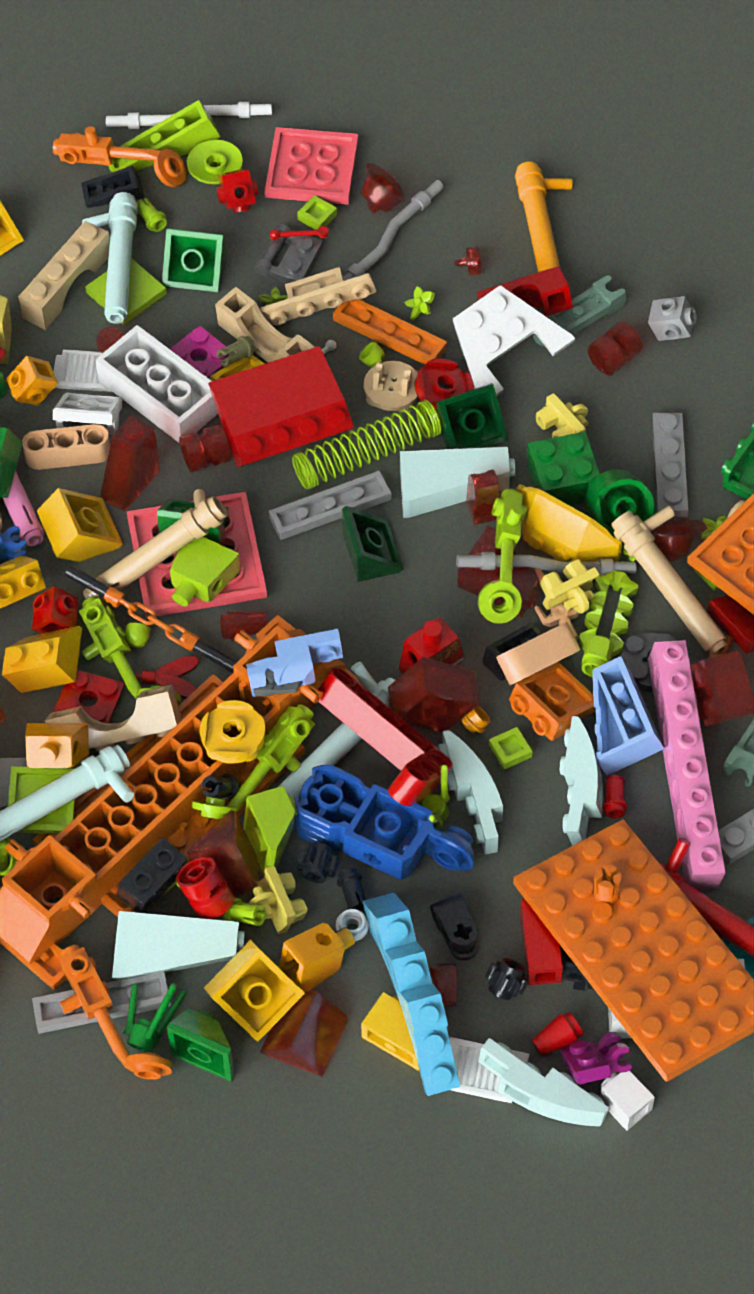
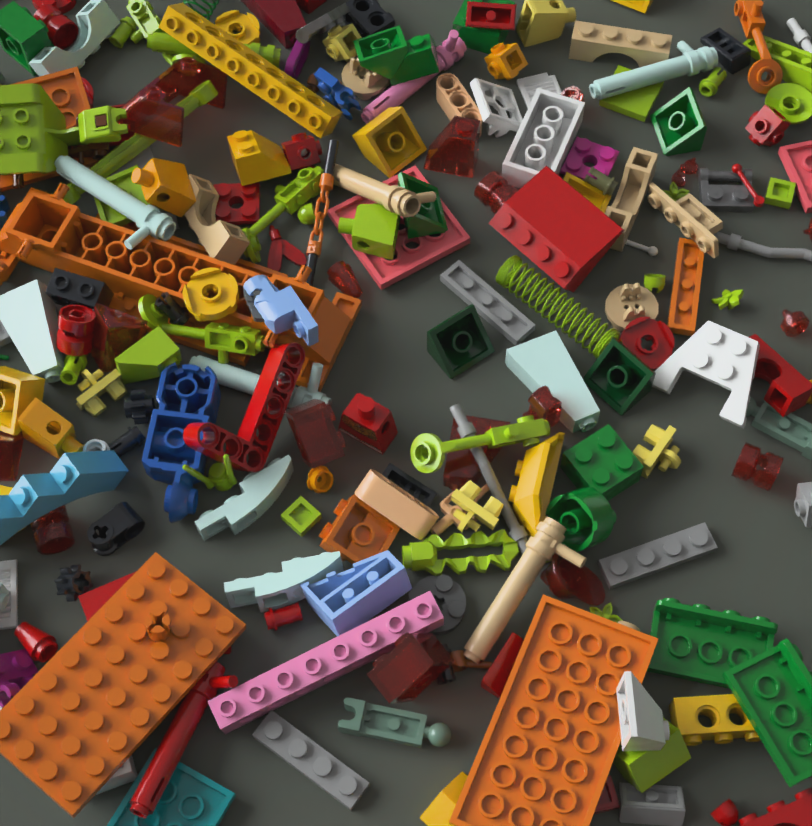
camera: 70 degrees right, 5 degrees up
(244, 278) = (688, 167): none -> clear red piece

